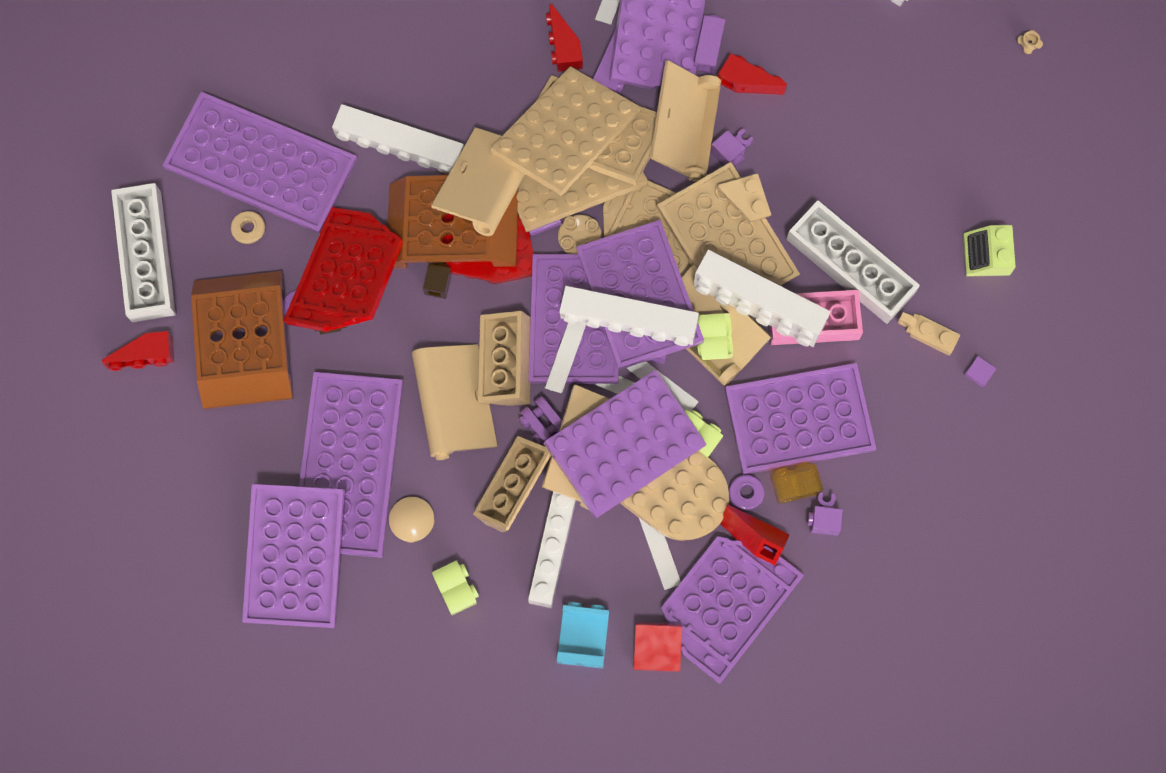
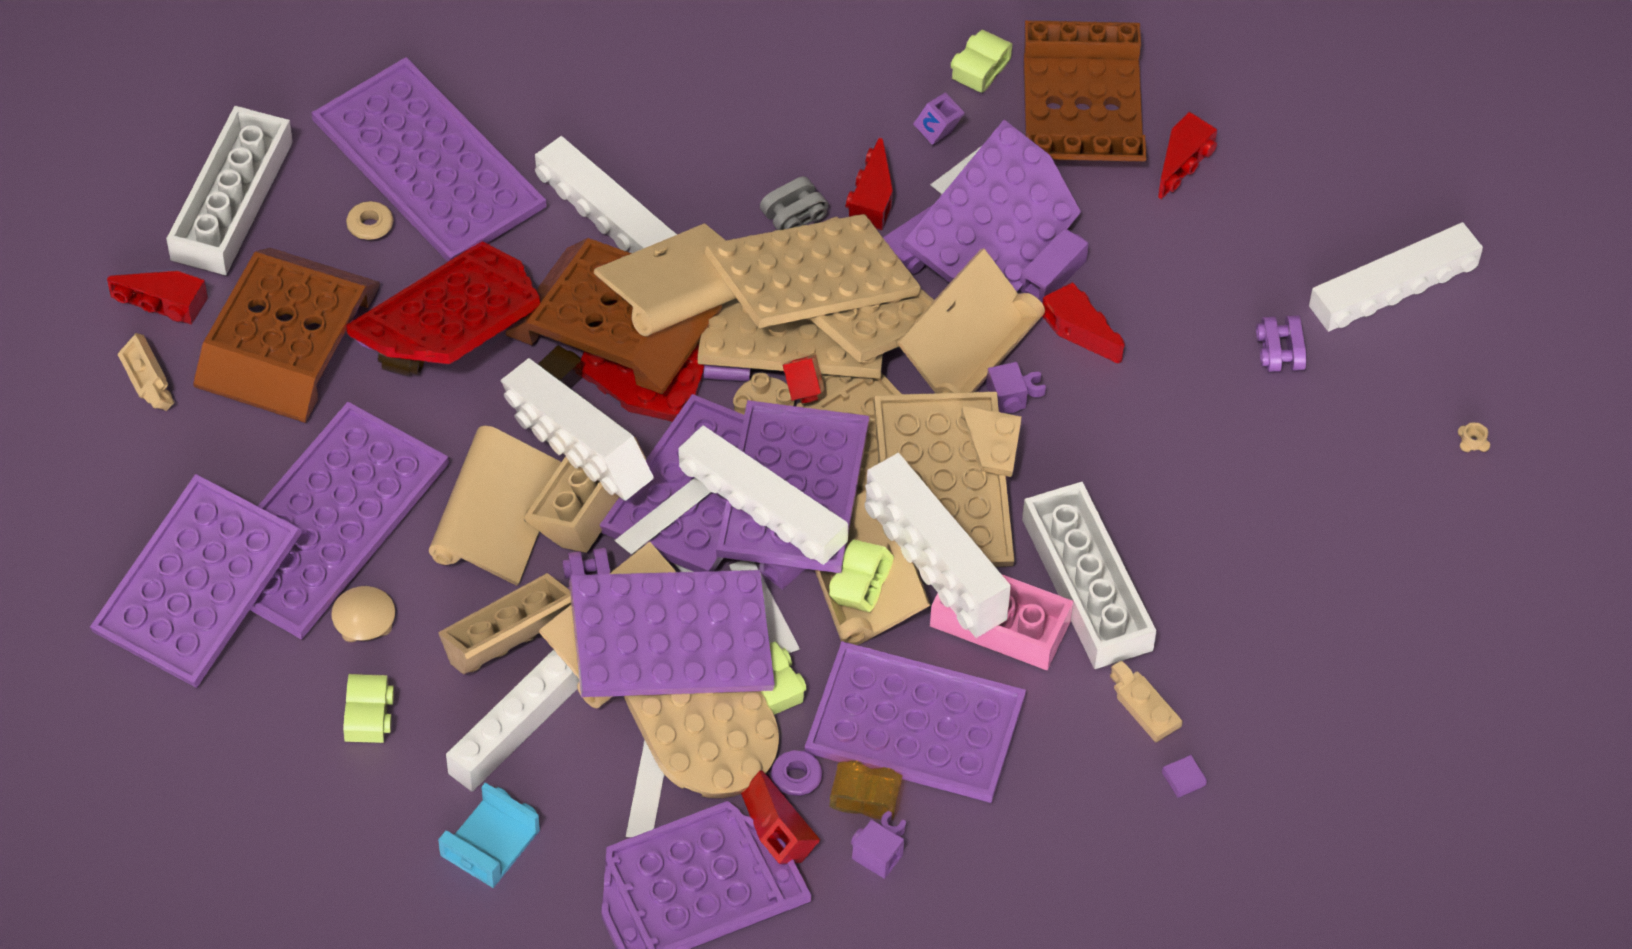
camera: 25 degrees right, 20 degrees down
(167, 416) = (145, 372): none -> tan hinge
(483, 328) = (576, 430): none -> white brick
(531, 77) = (794, 204): none -> light grey brick
(602, 211) = (804, 378): none -> red brick
(657, 647) = (574, 888): tile -> none
(869, 28) = (1271, 353): none -> medium lavender brick
(989, 251) = (1277, 644): yellowish green slope -> none

